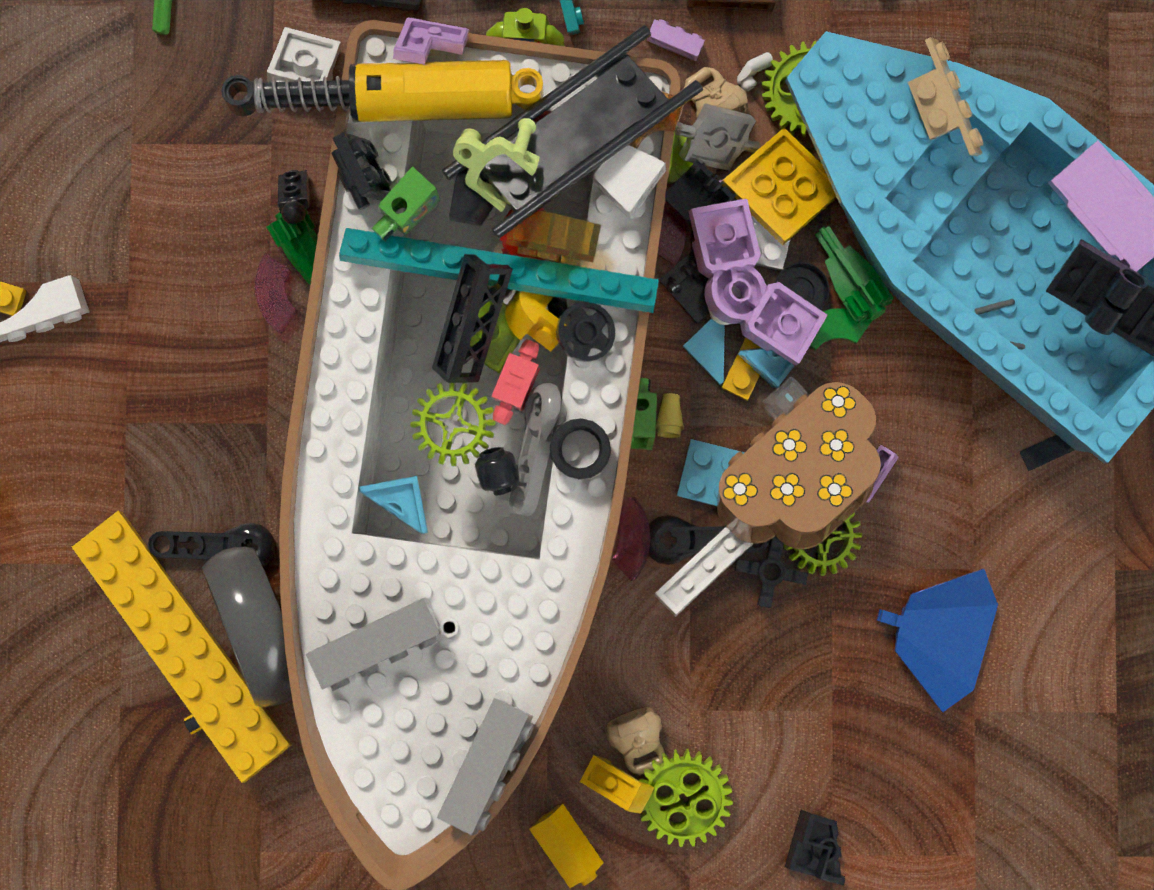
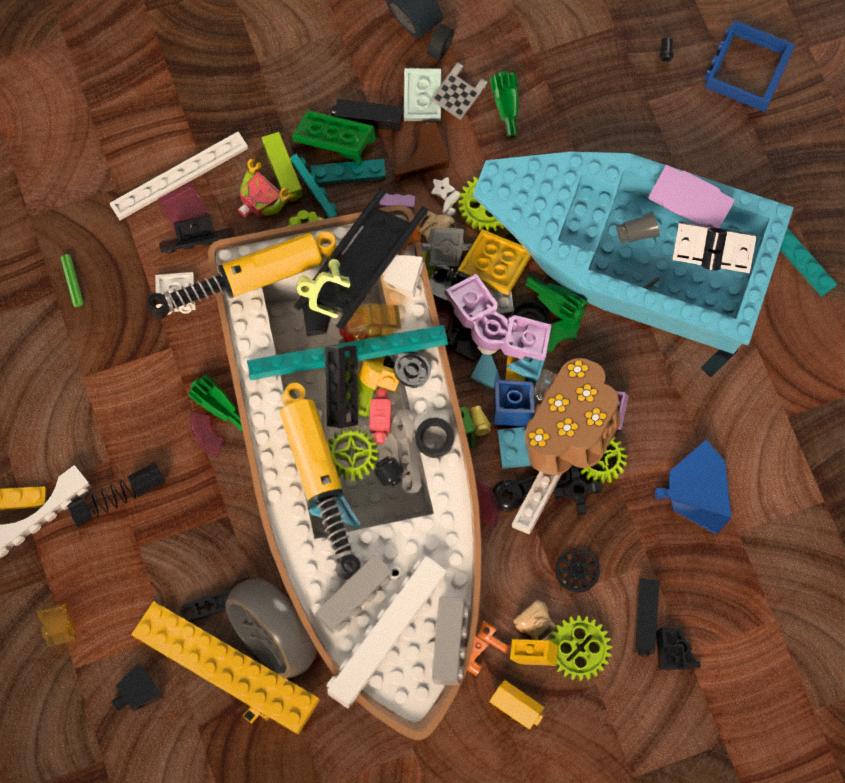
camera: 20 degrees left, 15 degrees down
(51, 629) = (136, 690): none -> black torso
(155, 333) = (141, 483): none -> black piece
(293, 195) = (198, 369): black plate -> none
(360, 169) = (245, 325): black plate -> none
(387, 439) = (317, 471): none -> yellow piece
(399, 720) = (386, 633): none -> white brick
(412, 193) = (279, 332): bright green torso -> none
(421, 36) = (252, 238): lavender tile -> none
(557, 731) = (481, 642): none -> orange piece
(725, 683) = (577, 571): none -> black wheel
(728, 409) = (513, 403): none -> blue slope
(742, 41) = (442, 192): none -> white plate
(794, 789) = (646, 617): none -> black brick
(940, 101) = (567, 175): tan bracket -> none
(1014, 222) = (638, 228): none -> dark grey plant

